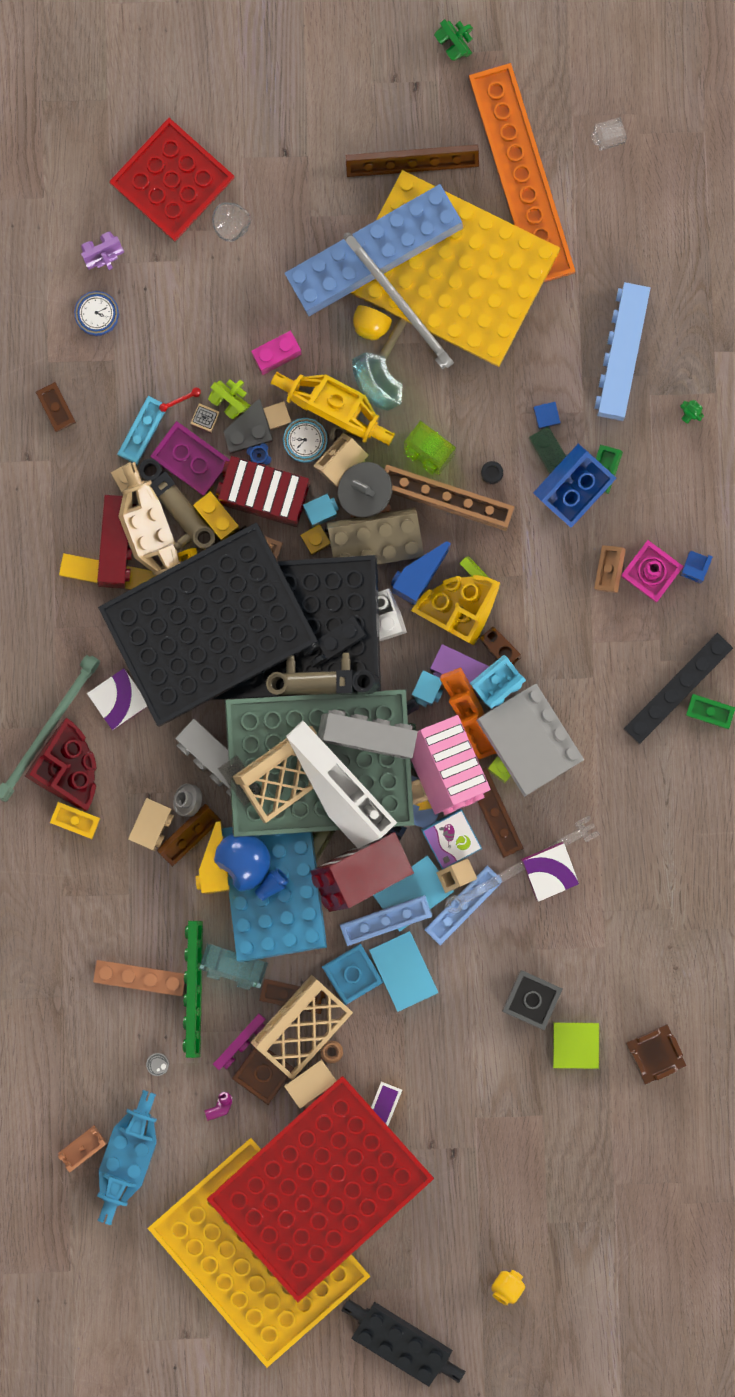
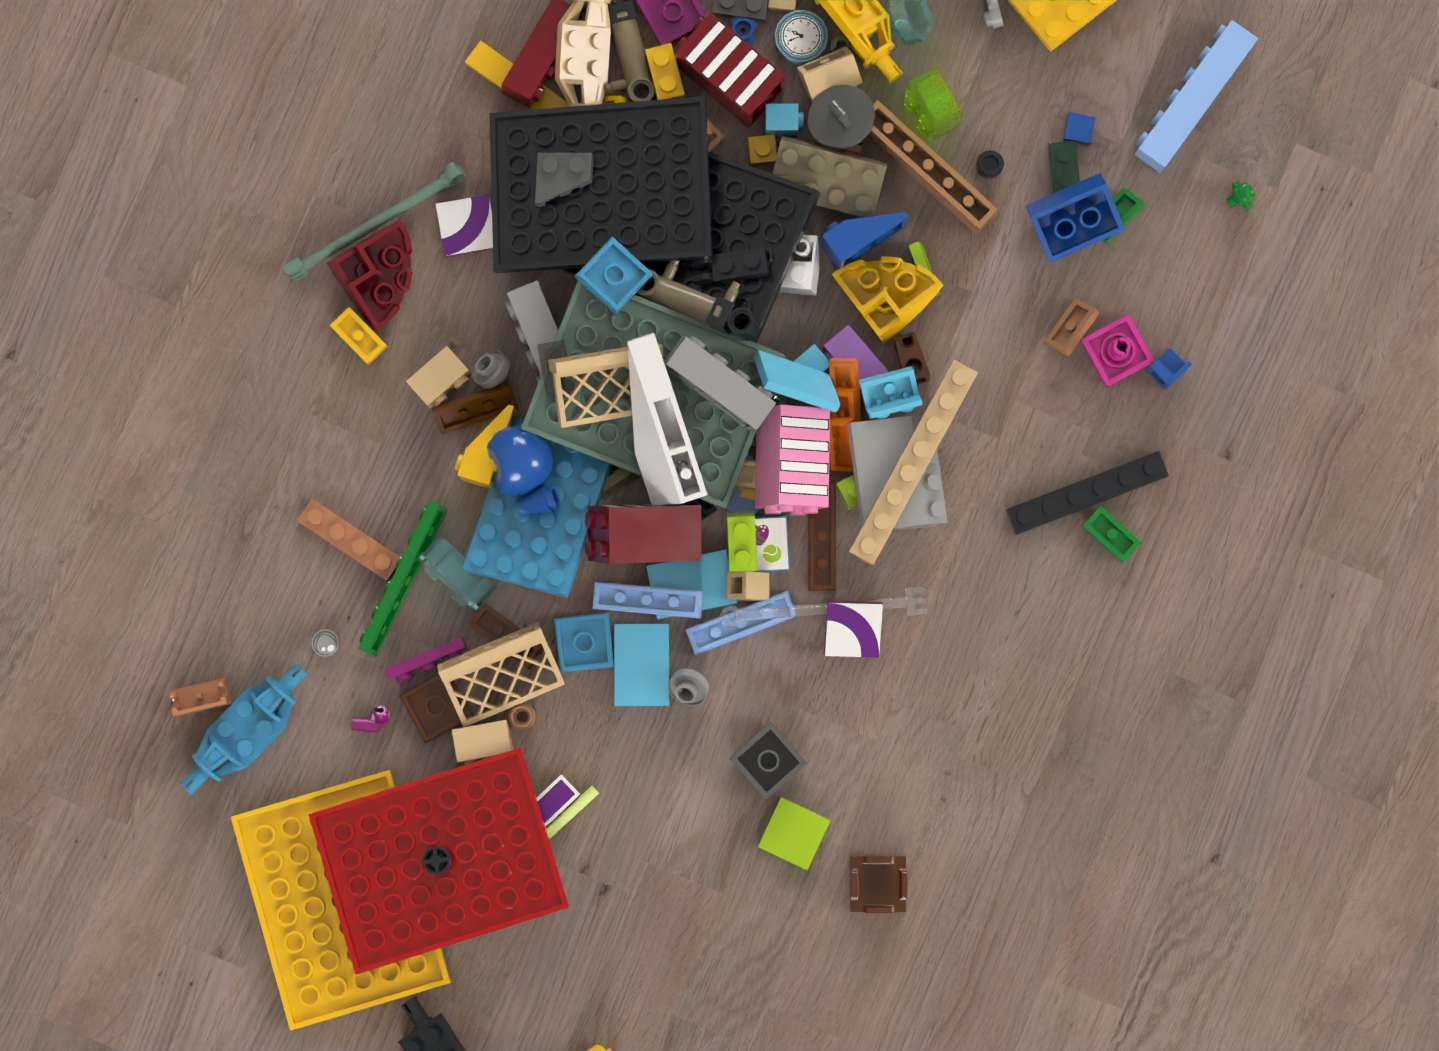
camera: 25 degrees right, 0 degrees up
(175, 630) = (561, 174): none -> dark grey wing
(251, 689) = (613, 275): none -> dark azure tile
(317, 1191) = (432, 860): none -> black wheel
(401, 1106) = (571, 811): none -> yellowish green bar
(424, 706) = (796, 381): none -> medium azure tile
(437, 844) = (741, 541): none -> lime brick
(447, 972) = (688, 687): none -> light grey plate
(538, 727) = (913, 462): none -> tan plate

